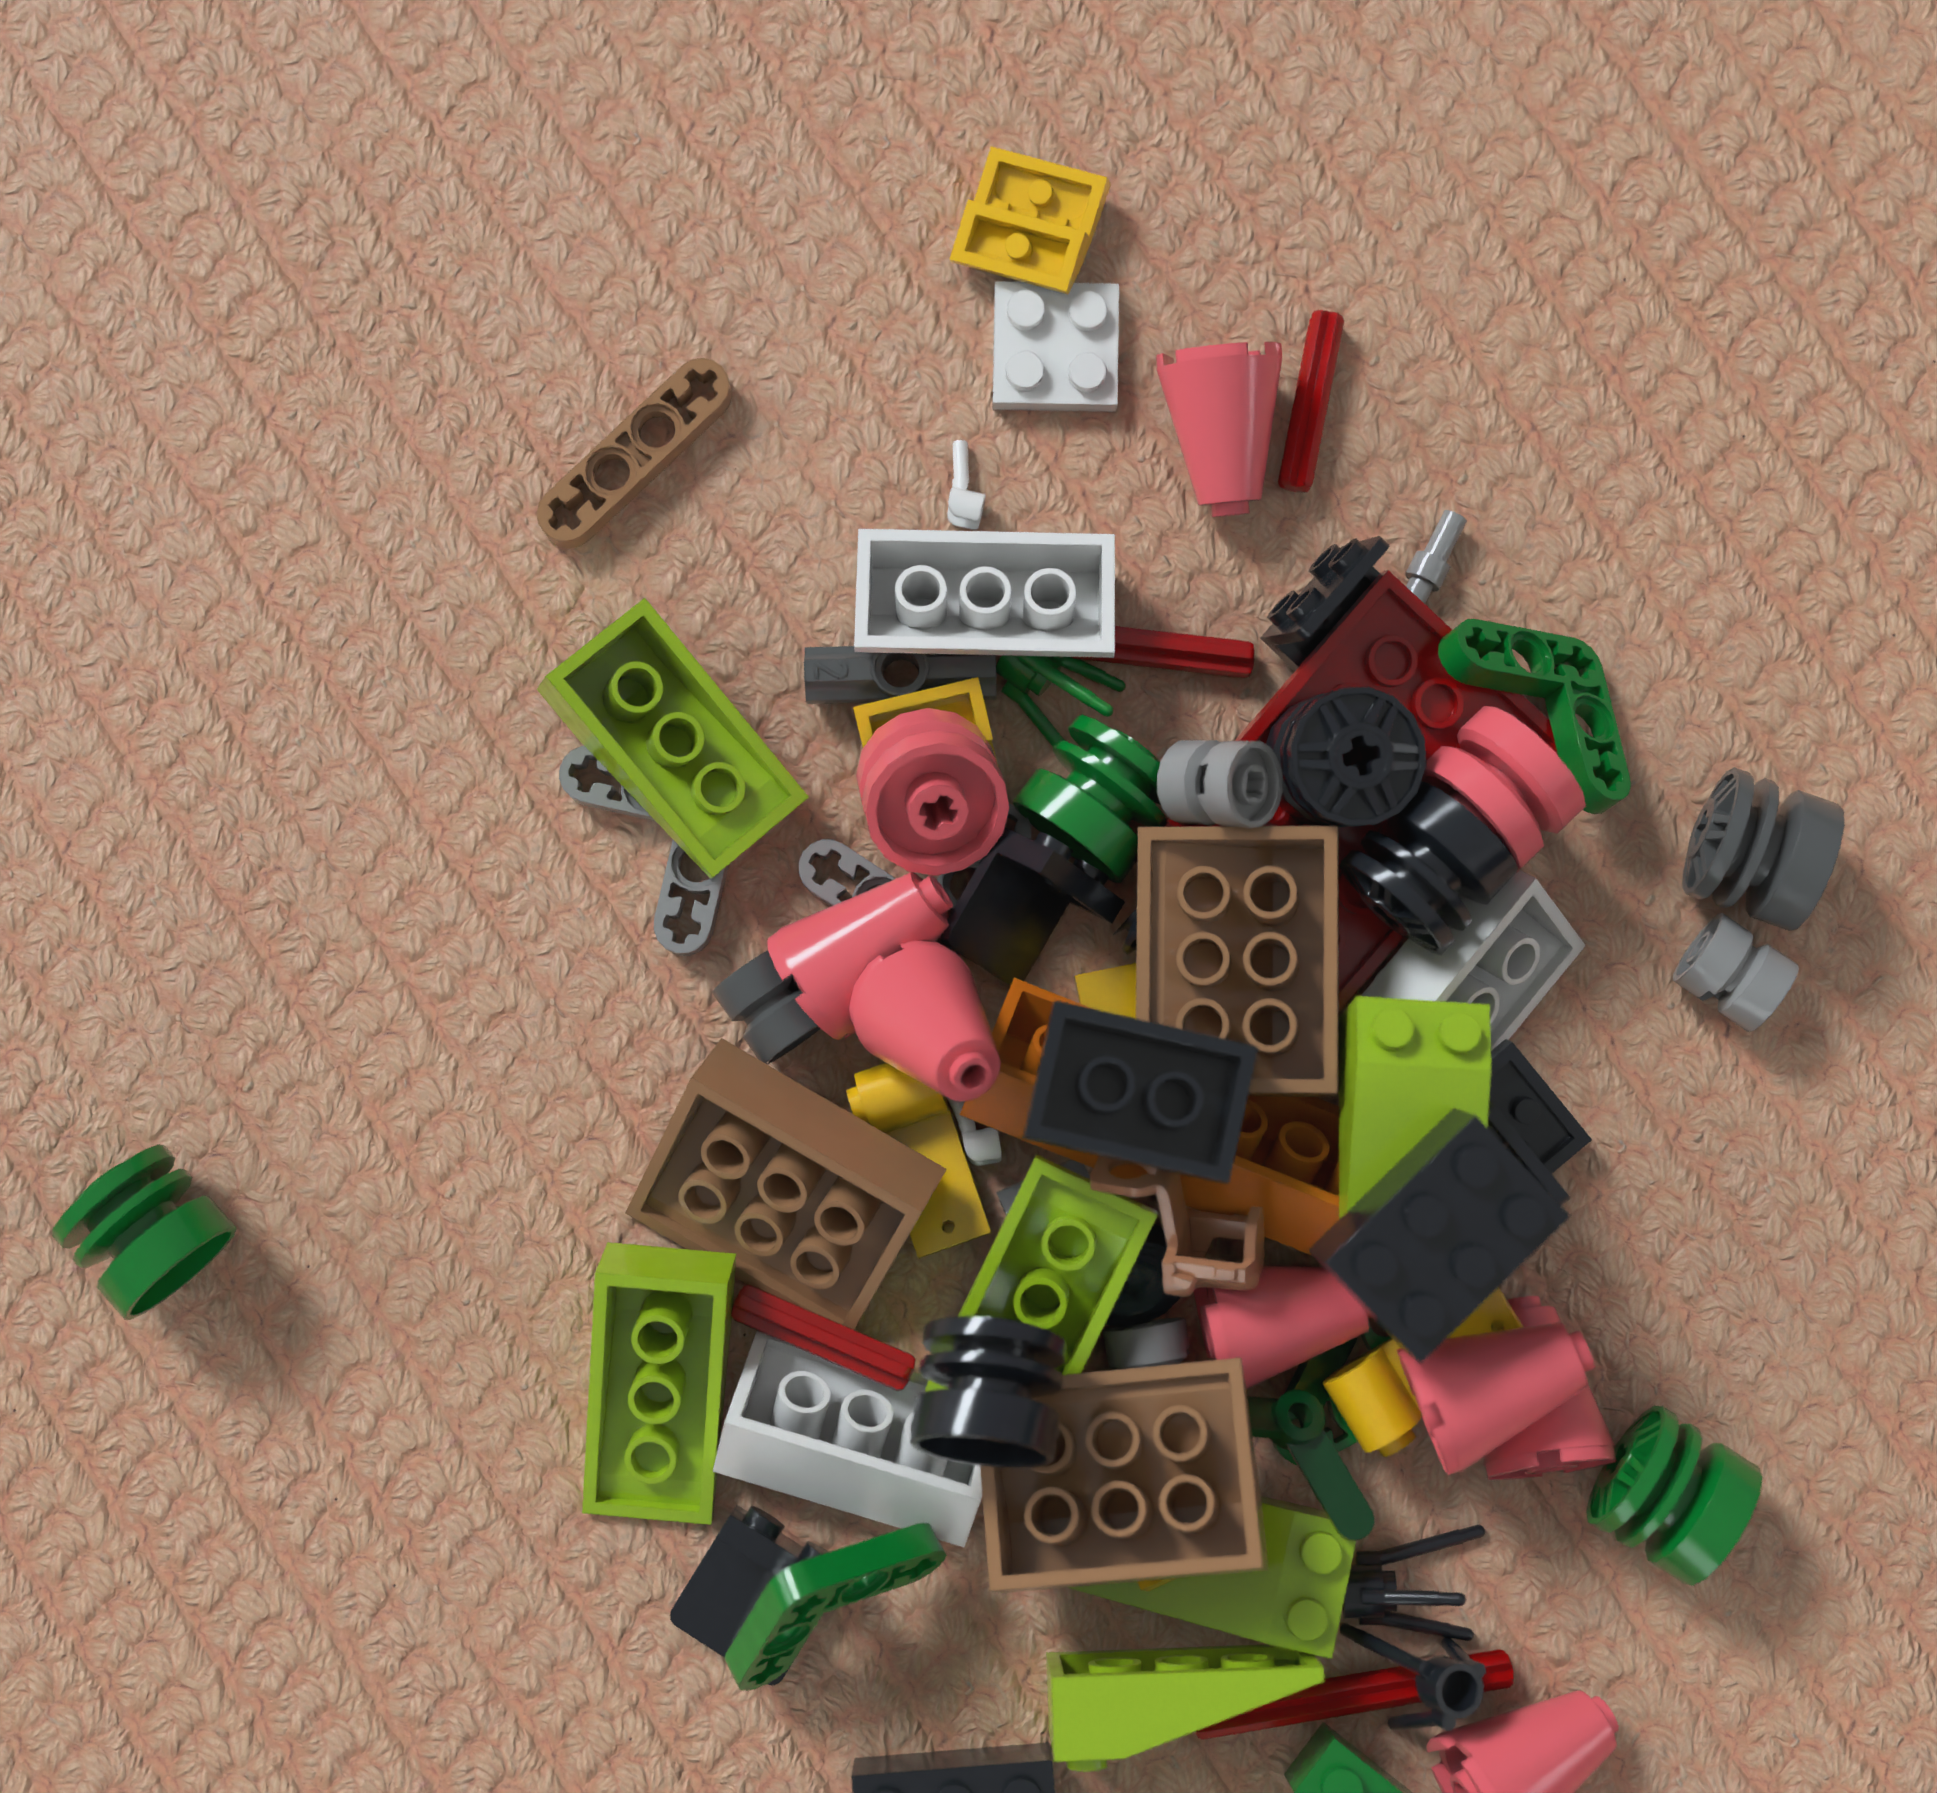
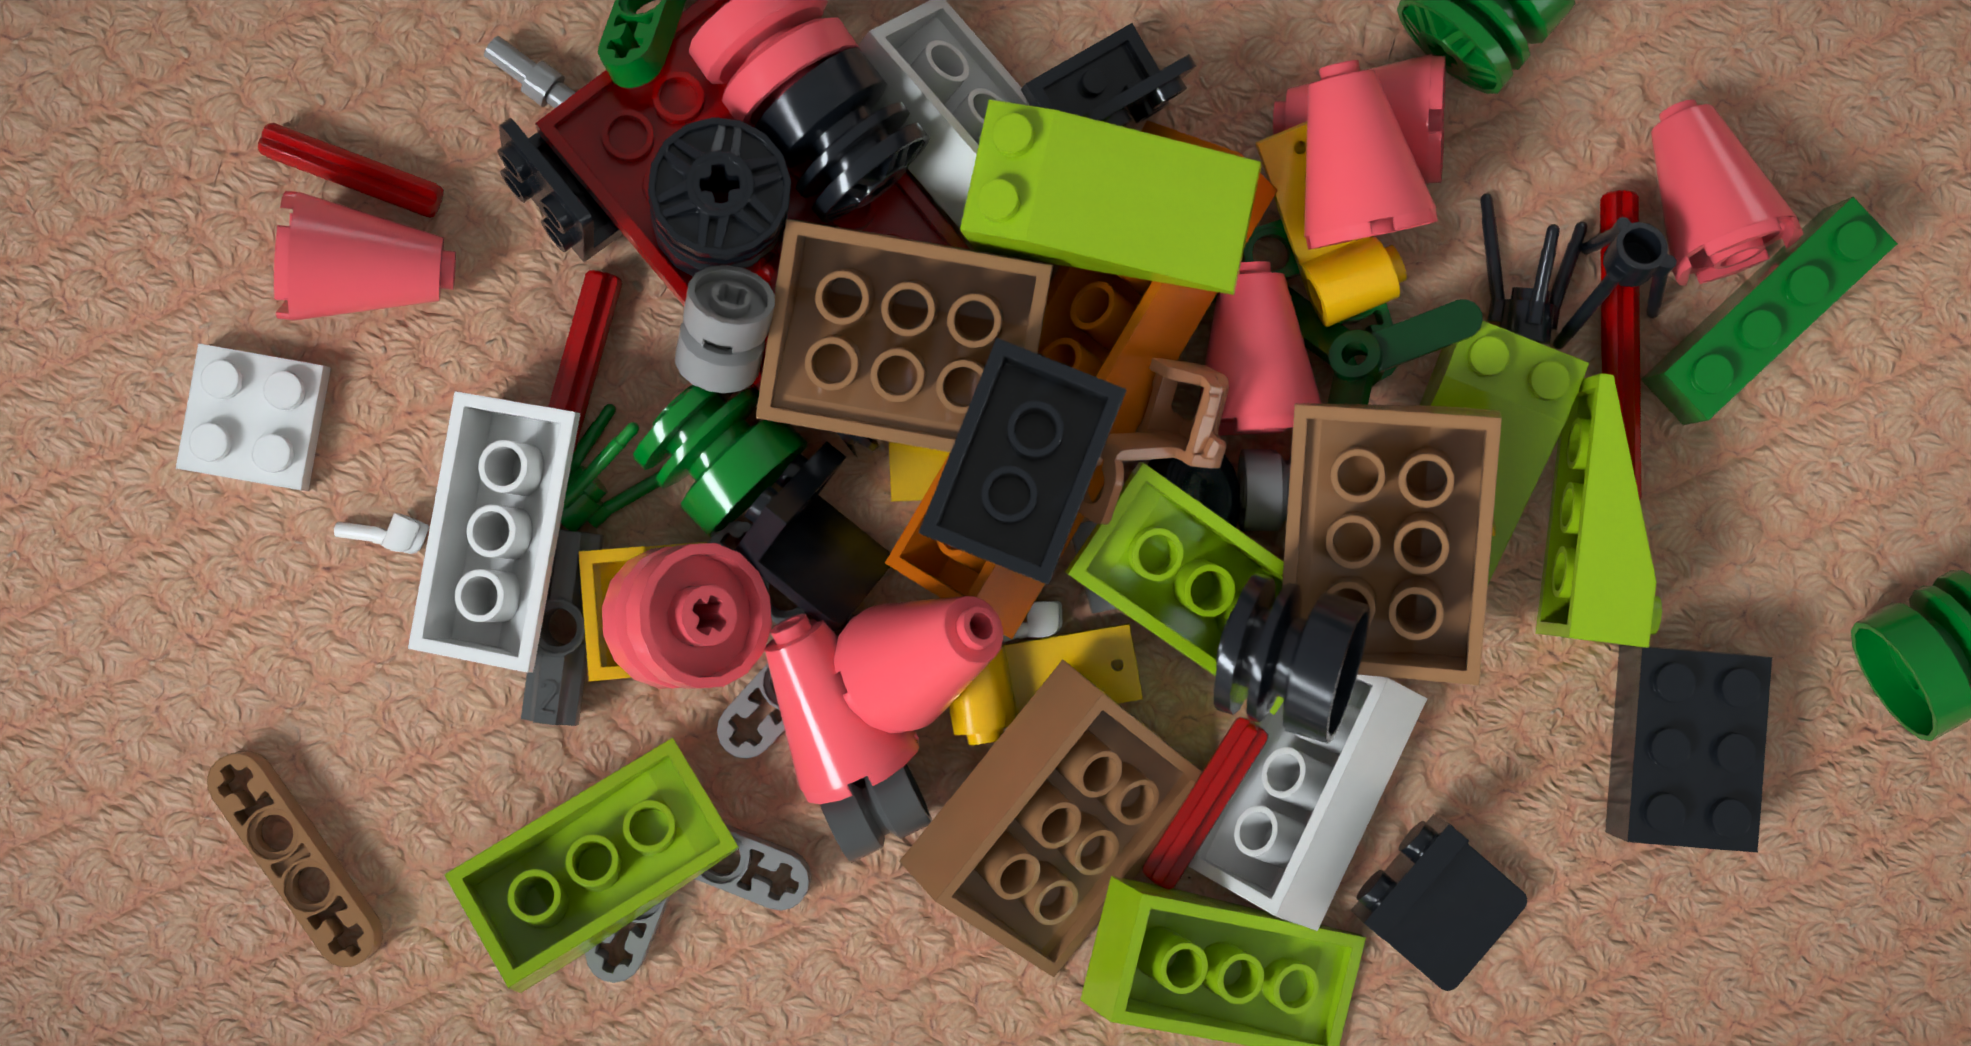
camera: 80 degrees left, 5 degrees up
(811, 1587) = (1452, 866): green beam -> none
(1030, 220) = (117, 422): yellow slope -> none
(1439, 1233) = (1207, 189): black brick -> none

